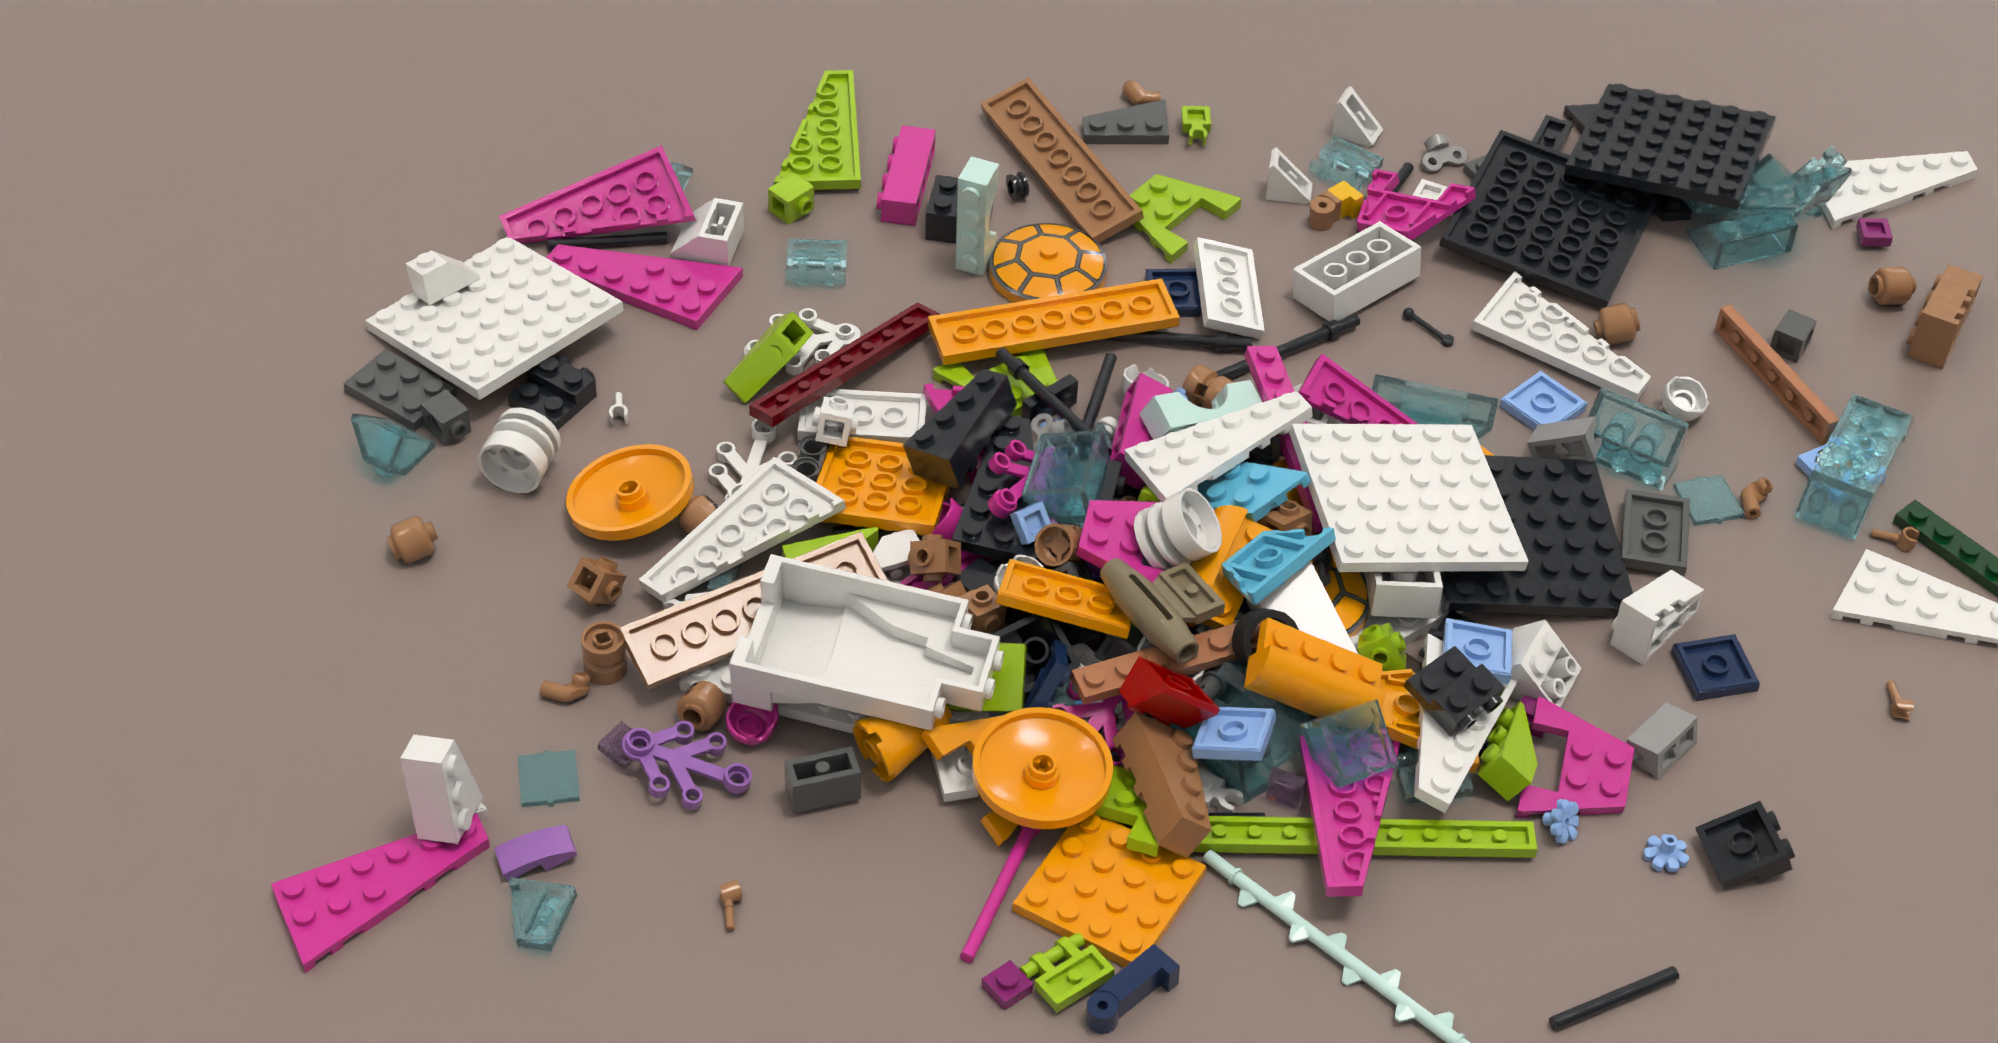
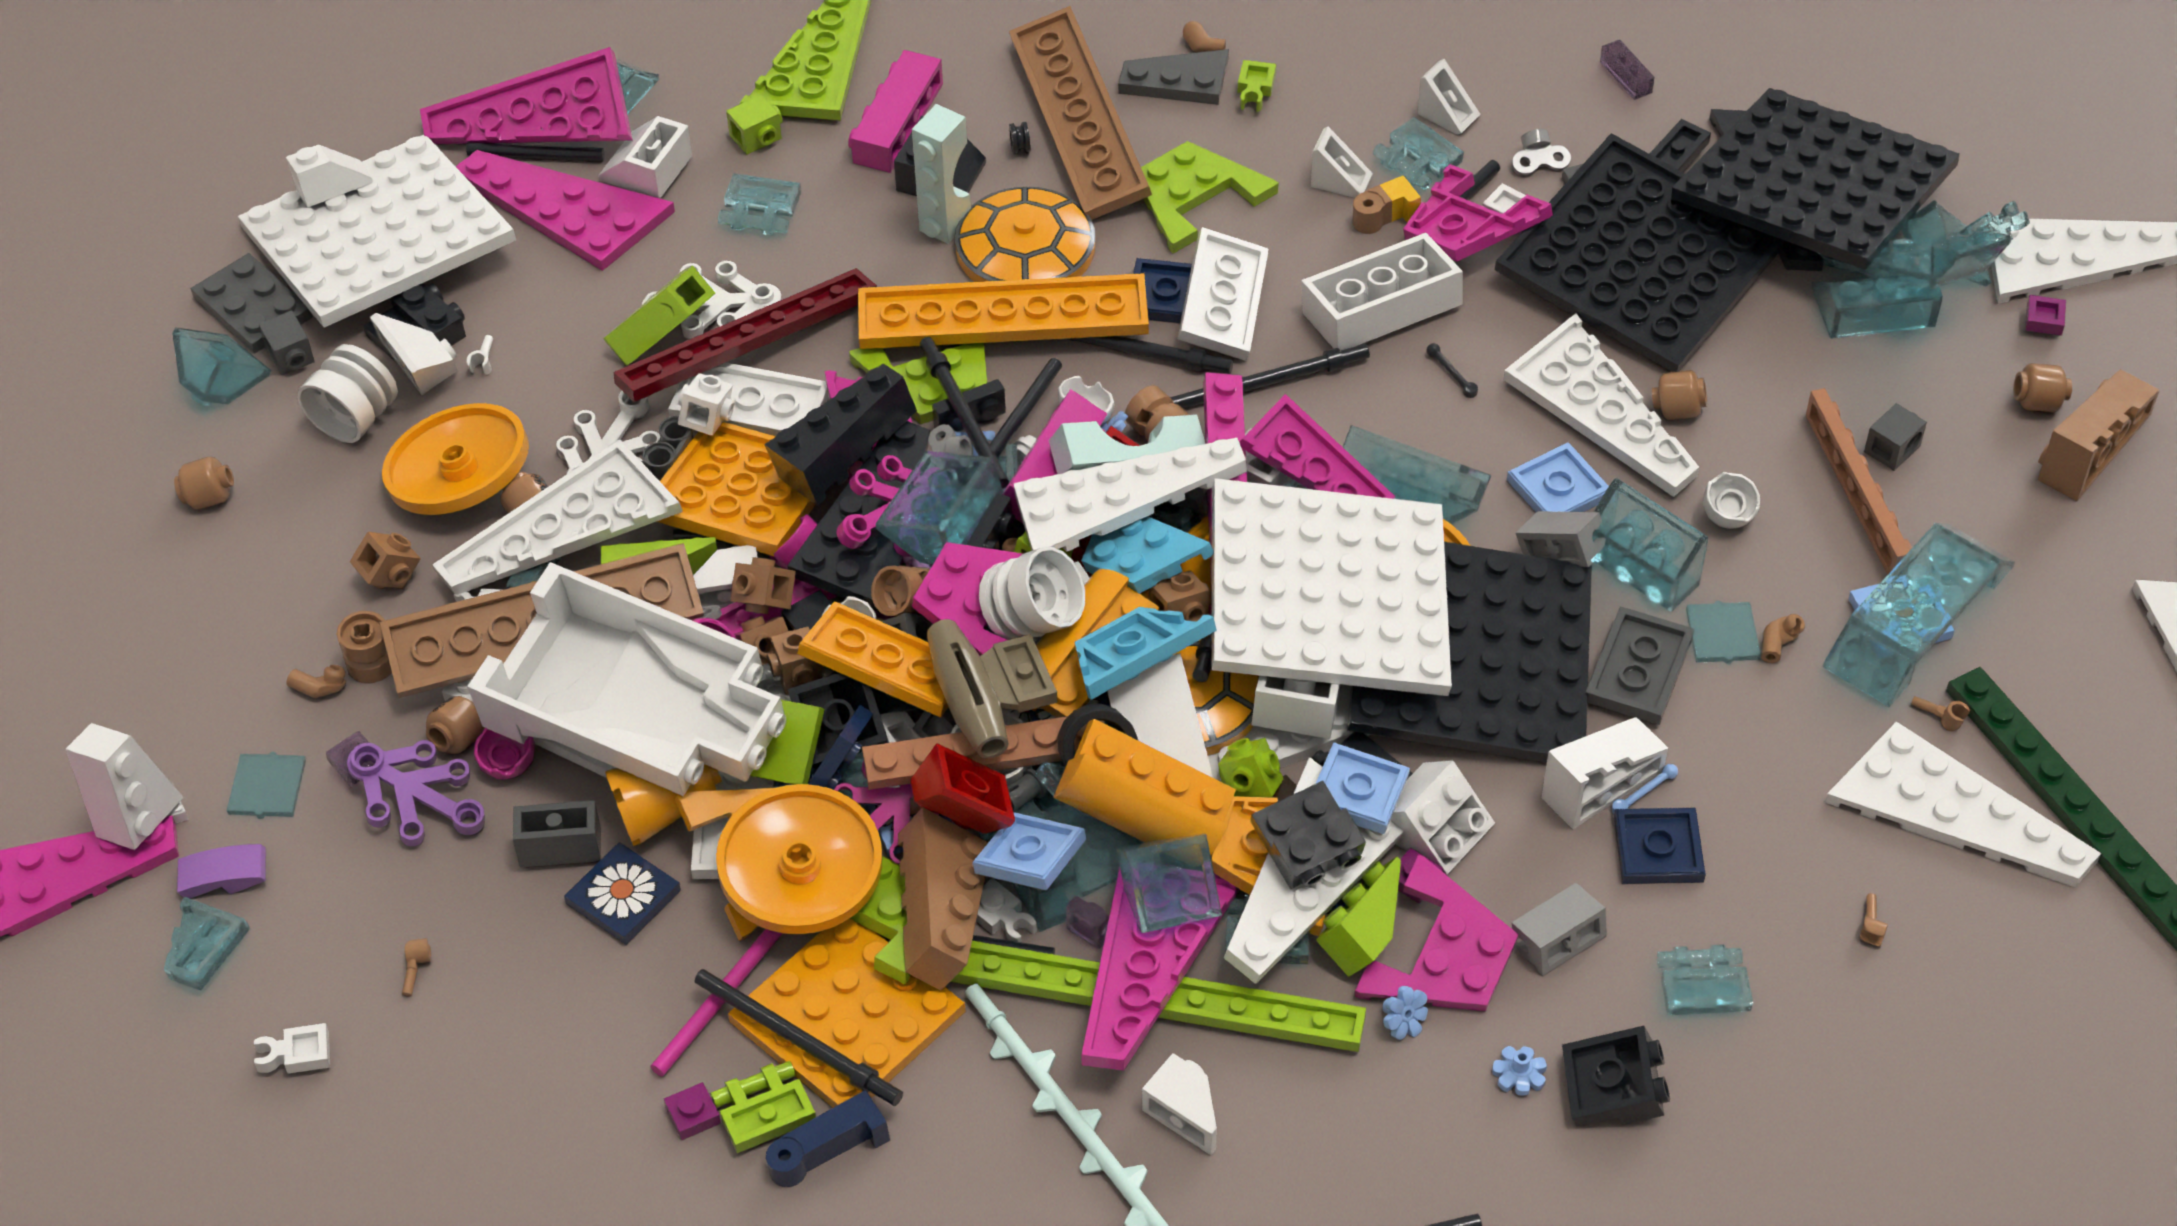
camera: 15 degrees right, 5 degrees up
(567, 409) = (416, 352): none -> white slope
(655, 984) = (300, 1051): none -> white plate
(888, 821) = (622, 893): none -> tile
(1030, 521) = (877, 555): light blue plate -> none
(1147, 932) = (860, 1075): none -> black bar
(1413, 916) = (1182, 1101): none -> white slope
(1488, 82) = (1627, 69): none -> clear purple piece
(1704, 610) = (1669, 771): none -> light blue hinge
(1790, 770) = (1704, 990): none -> clear light blue plate

